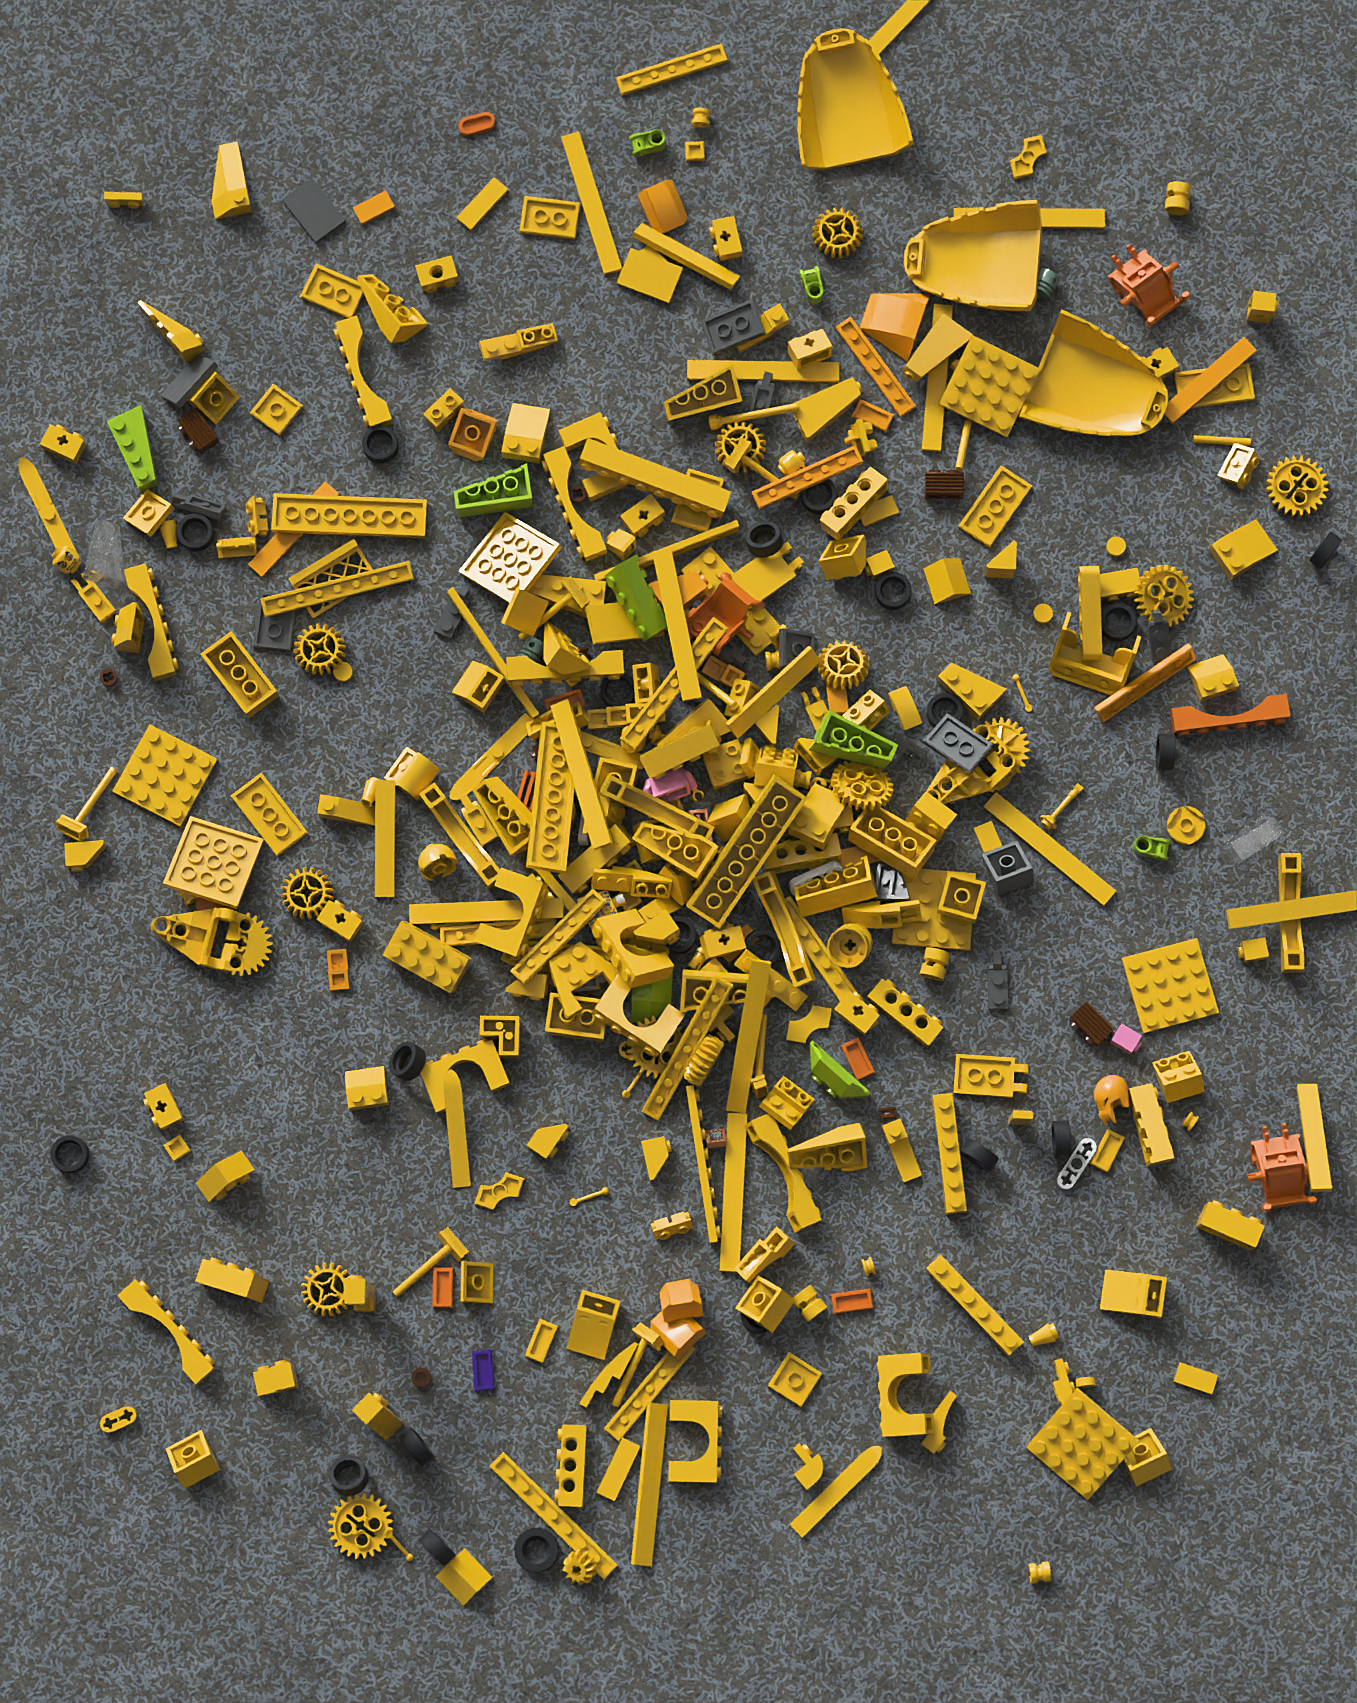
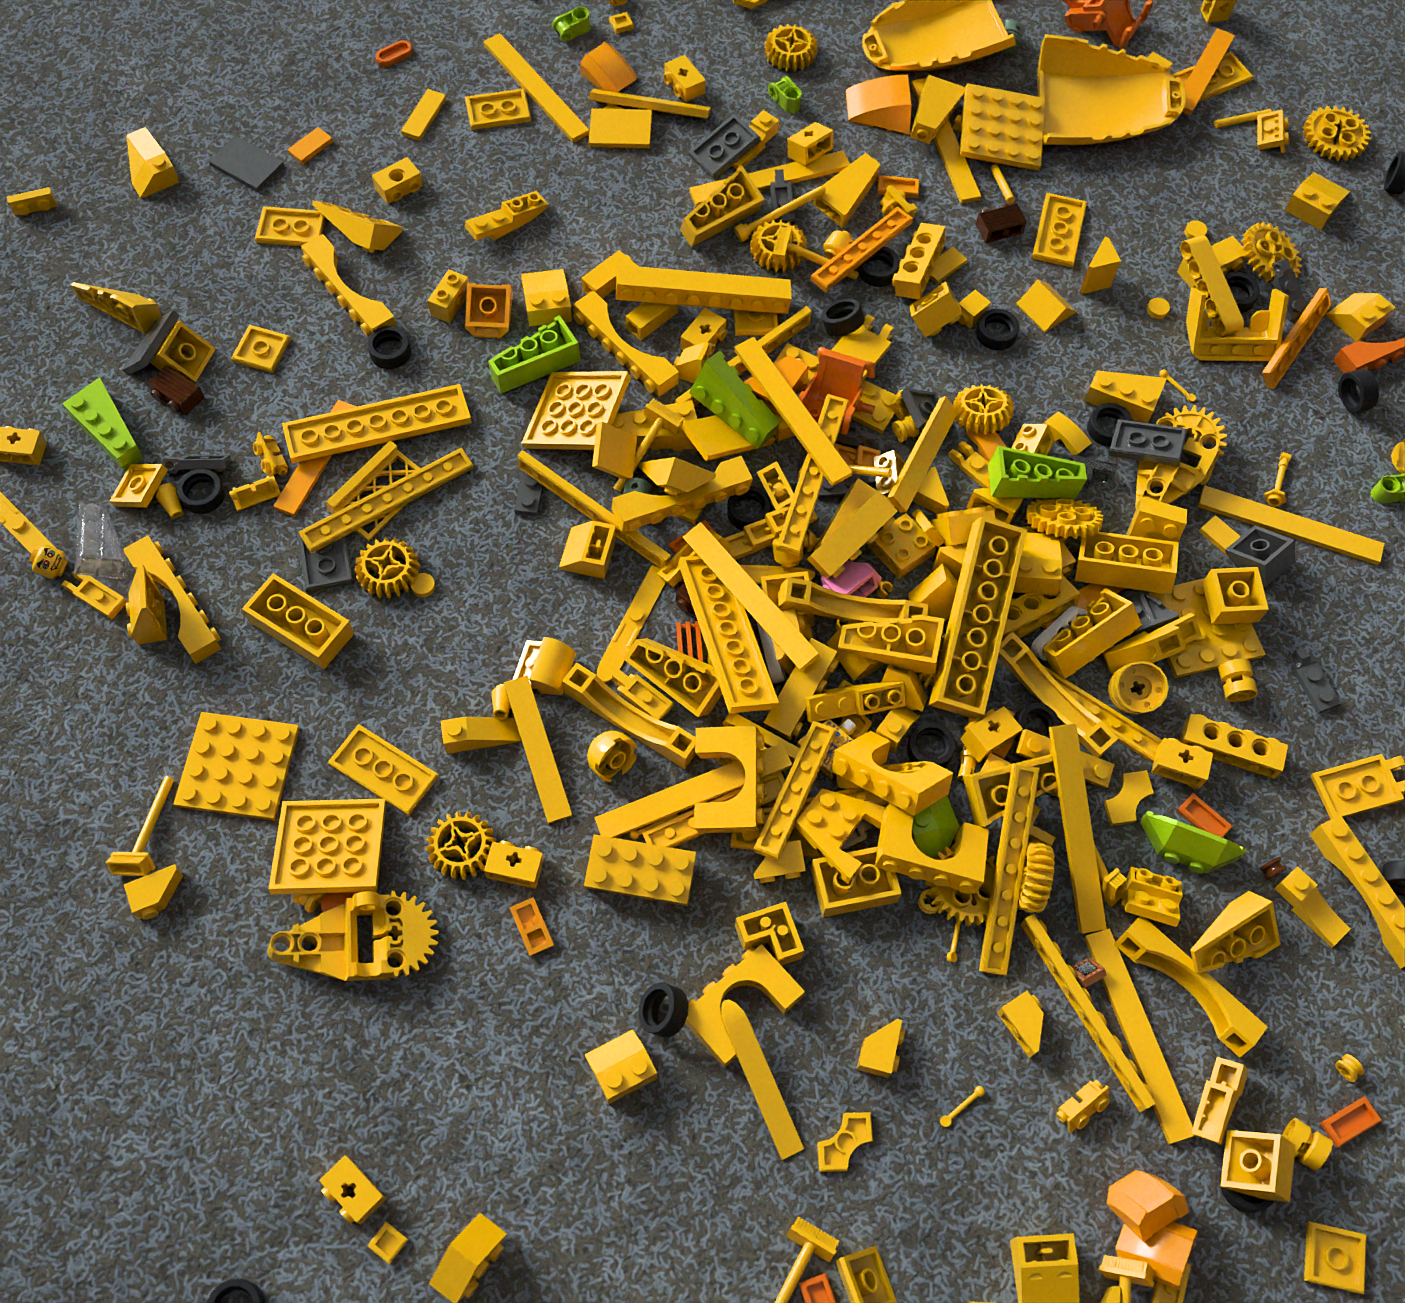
camera: 25 degrees left, 15 degrees down
(107, 672) = (131, 671): reddish brown bush -> none
(578, 500) = (626, 330): reddish brown bush -> none
(658, 930) = (915, 740): yellow slope -> none
(875, 367) = (881, 147): light orange tile -> none

